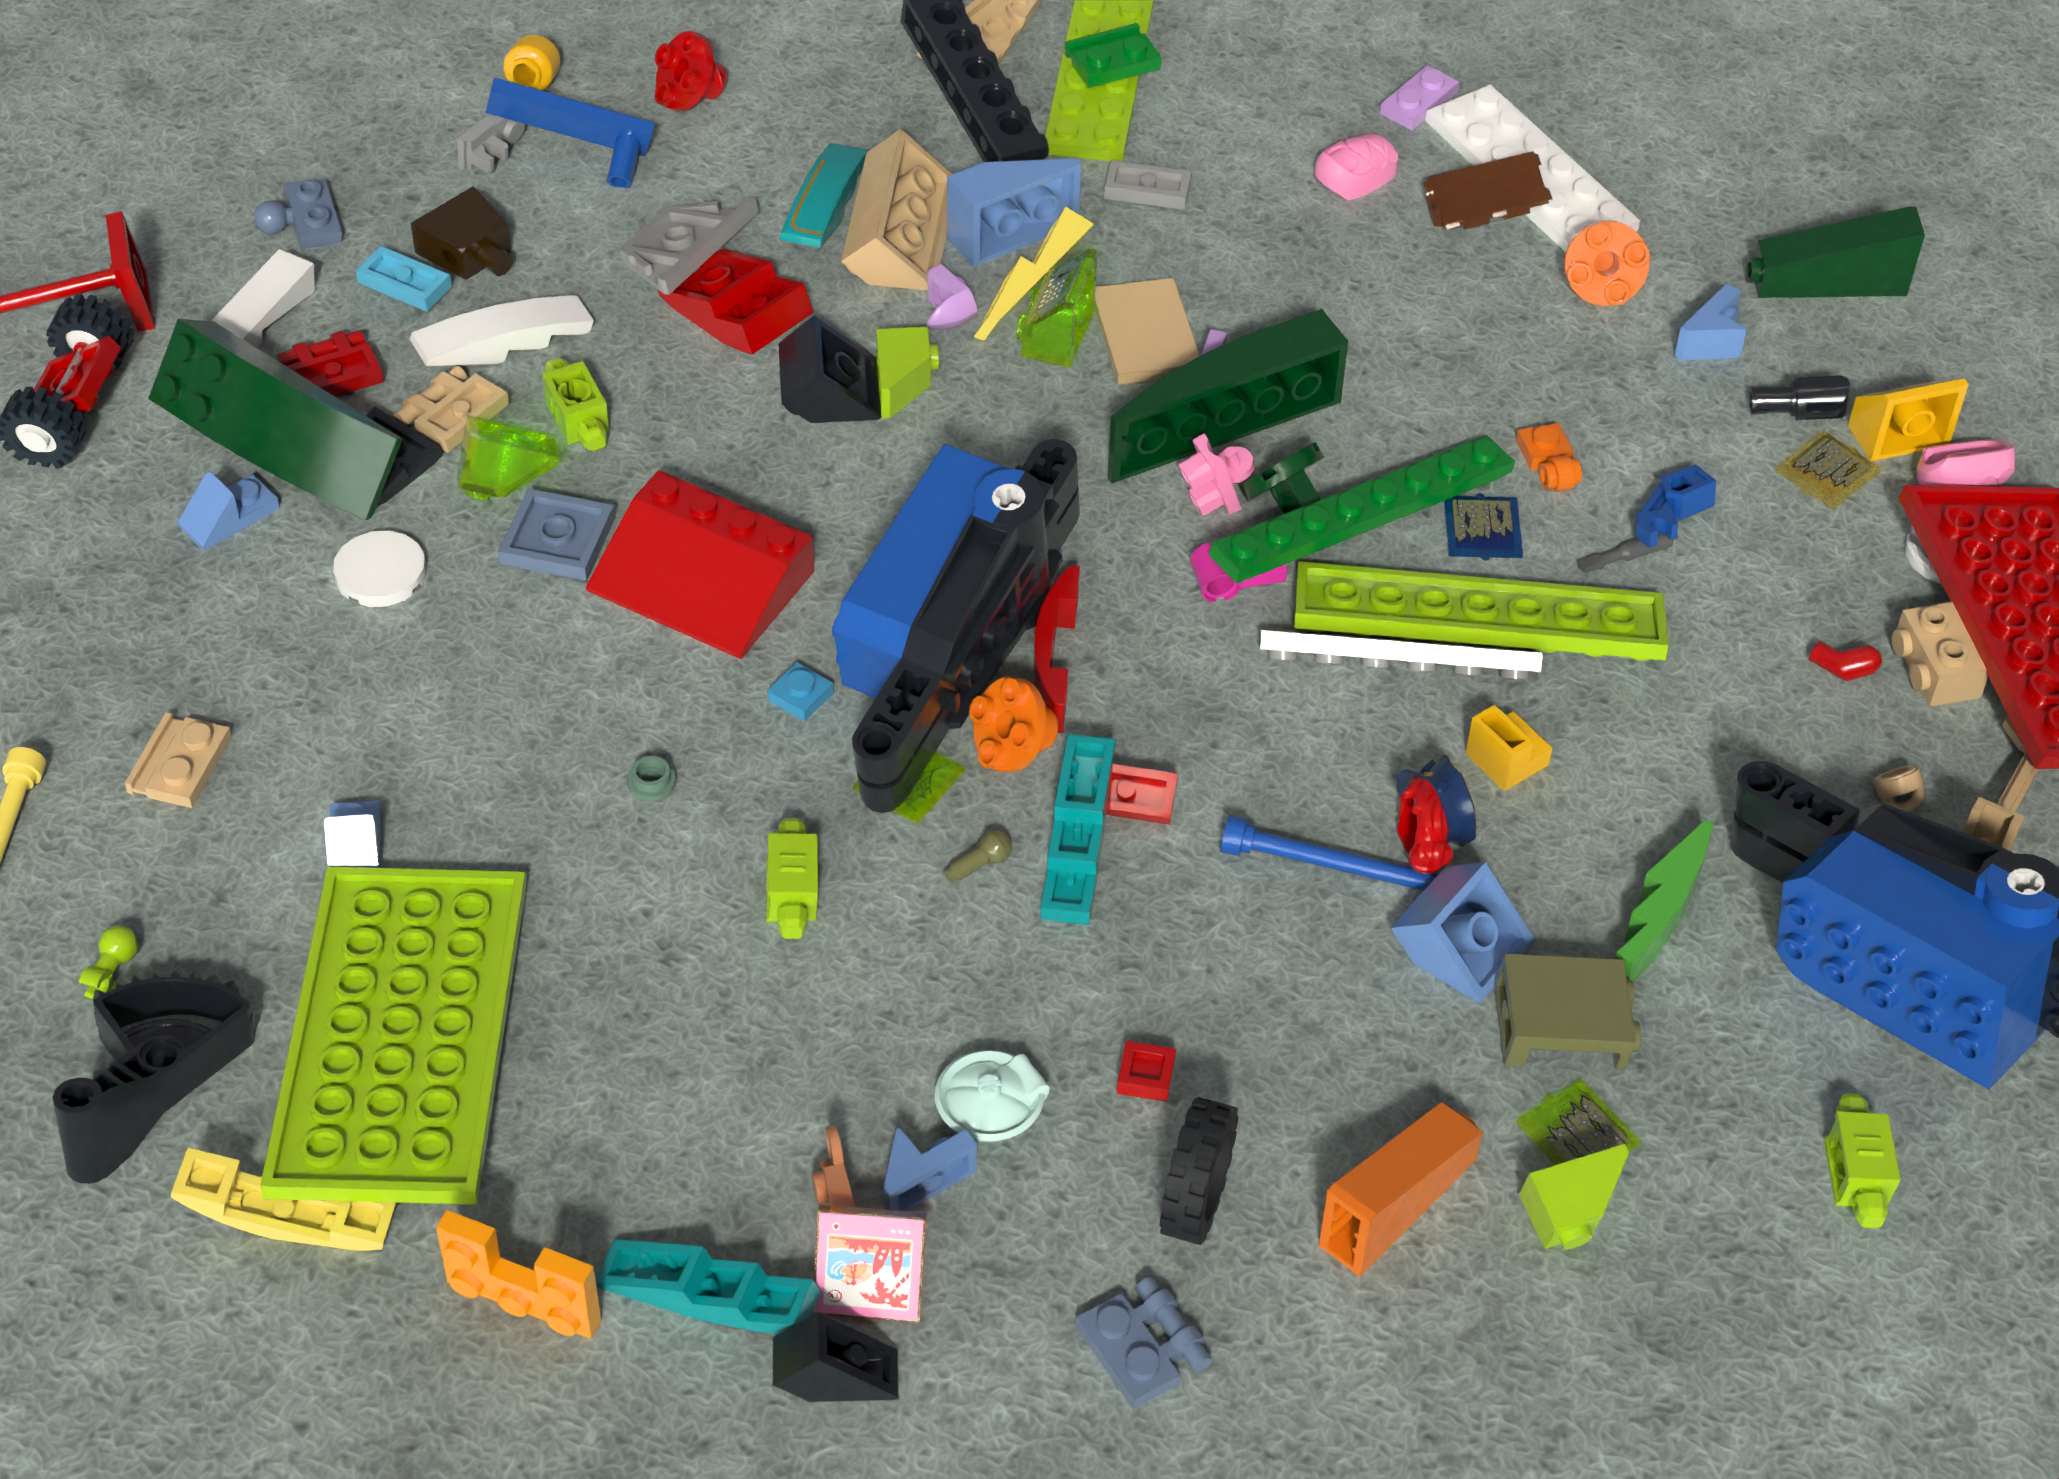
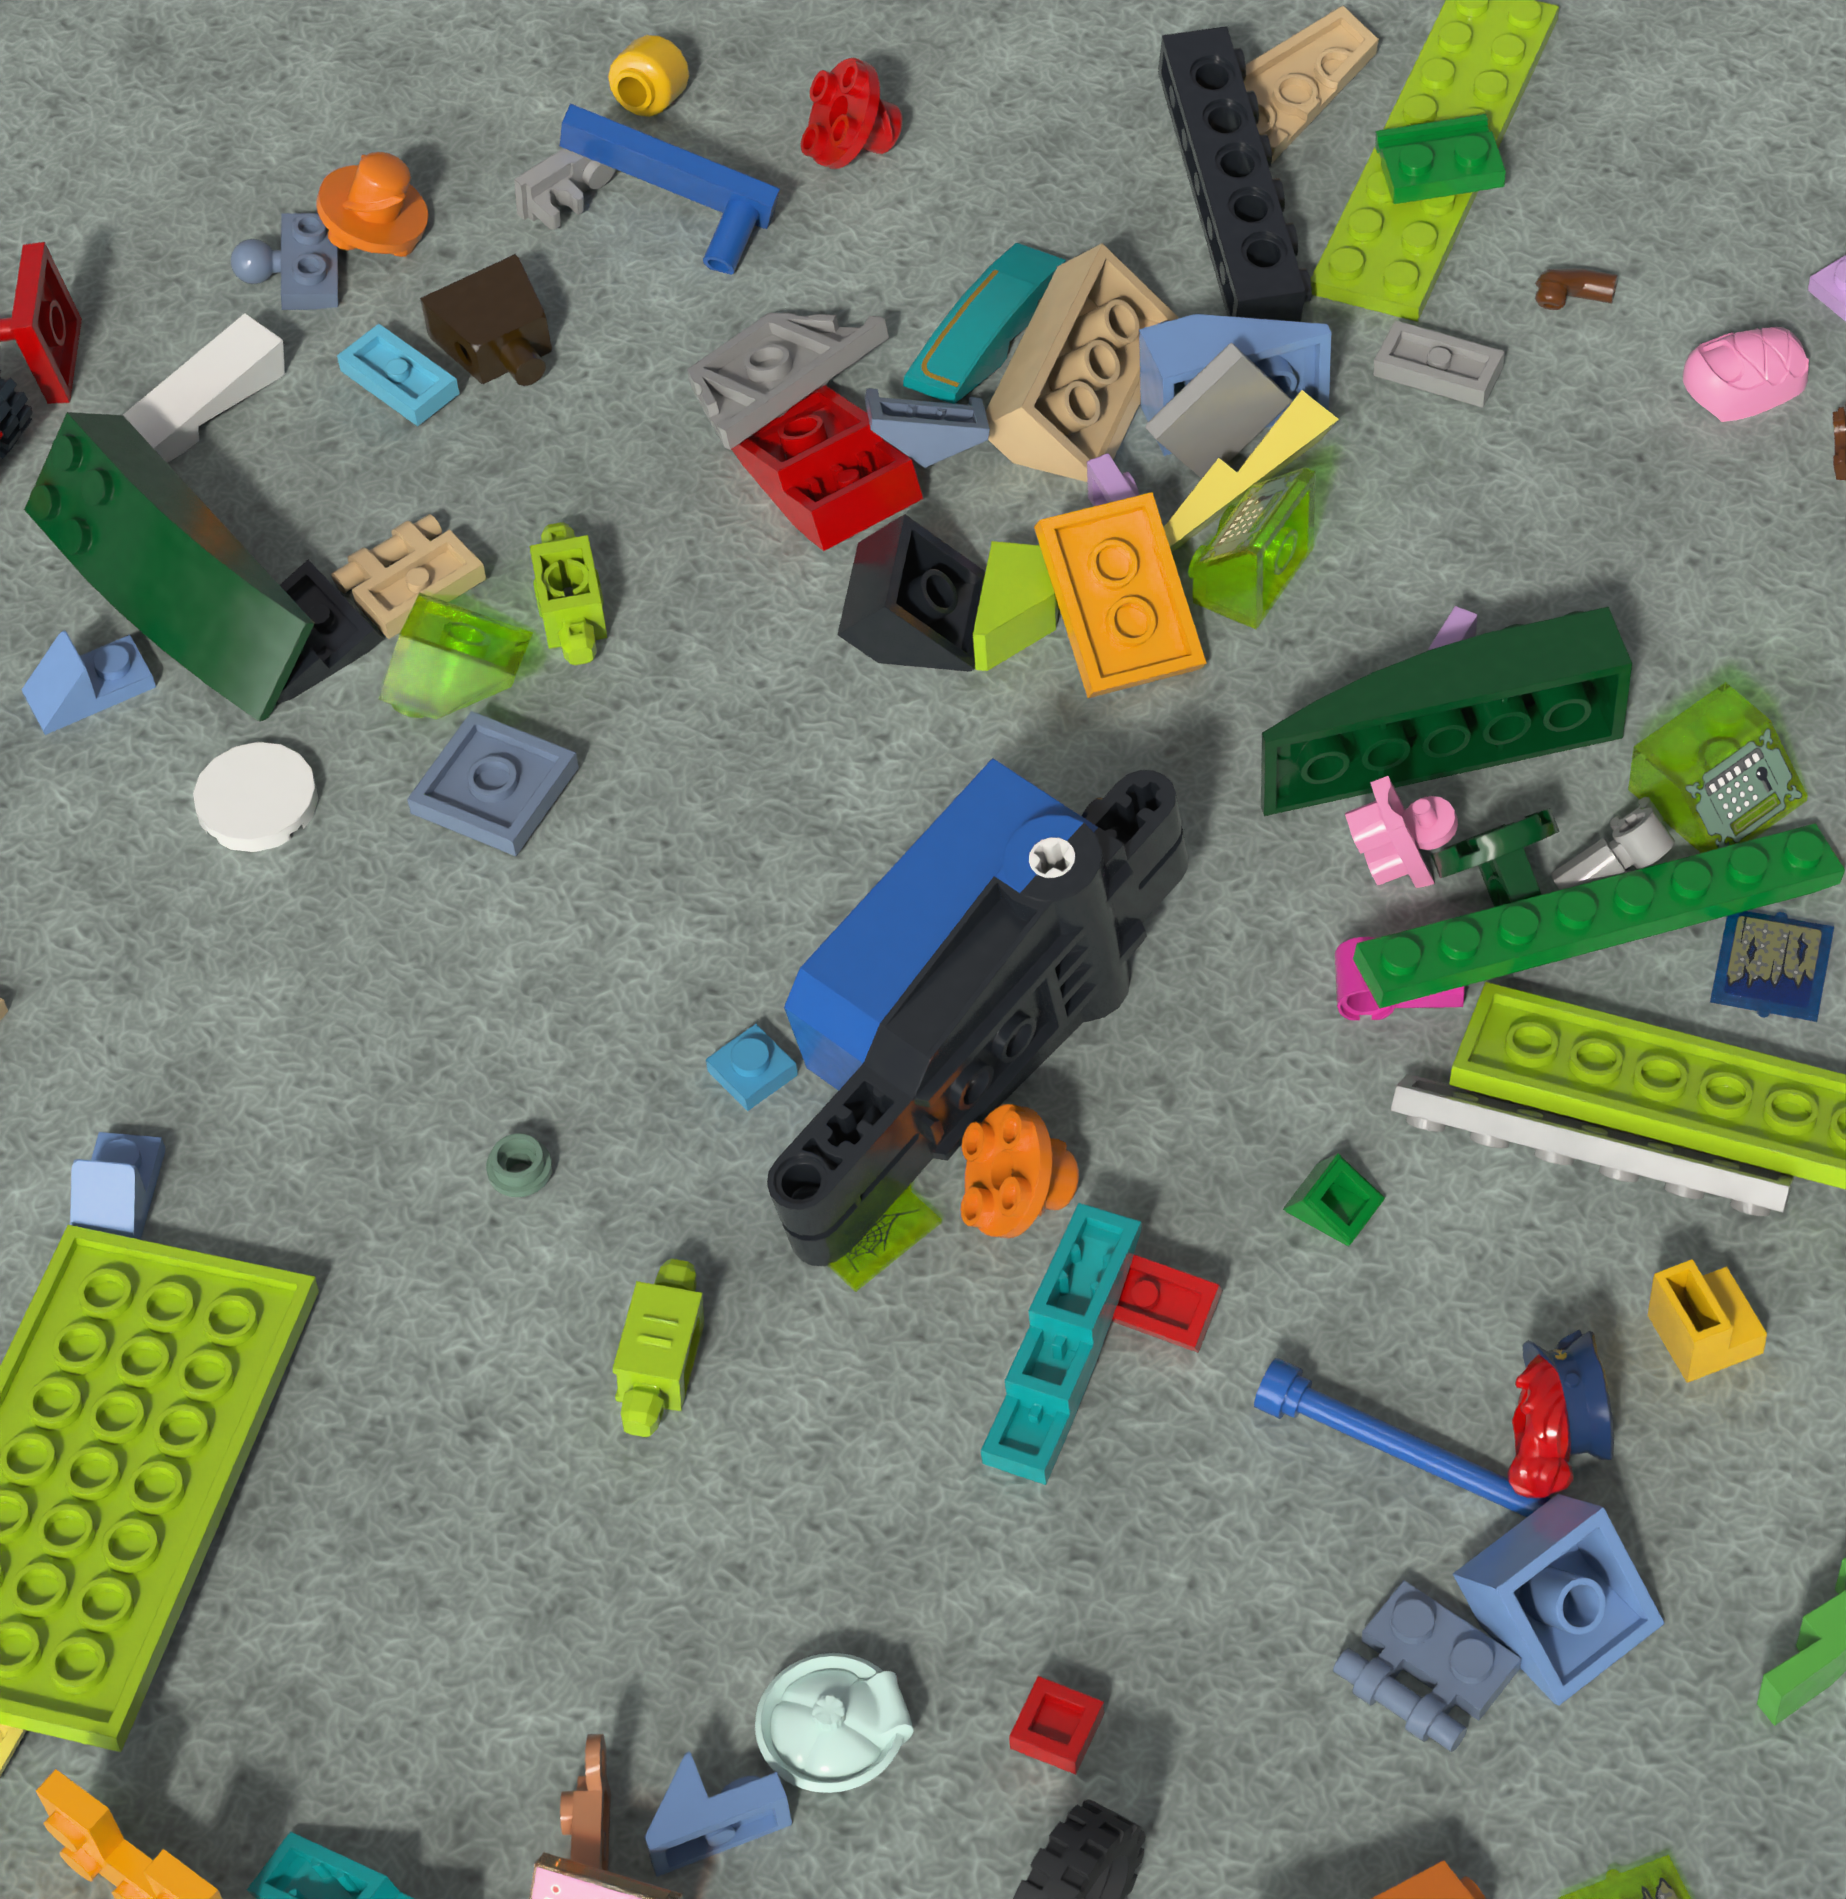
camera: 20 degrees right, 5 degrees up
(336, 363) = (271, 491): red plate -> none
(353, 168) = (373, 206): none -> orange plate
(492, 331) = (485, 471): white slope -> none
(702, 564) = (669, 860): red slope -> none
(809, 263) = (927, 429): none -> sand blue slope
(976, 351) = (1119, 595): none -> light orange plate
(992, 848) = (943, 1348): olive piece -> none
(1013, 225) = (1218, 411): none -> light grey tile
(1056, 611) = (1130, 1000): red slope -> none
(1144, 329) = (1373, 587): tan tile -> none
(1229, 125) = (1574, 282): none -> reddish brown arm
(1234, 713) = (1335, 1200): none -> green slope
(1371, 459) = (1637, 841): none -> light grey bar
(1390, 981) = (1439, 1651): none -> sand blue plate
(1412, 411) = (1717, 772): none -> clear neon green slope
(1565, 1007) = (1671, 1745): olive panel -> none

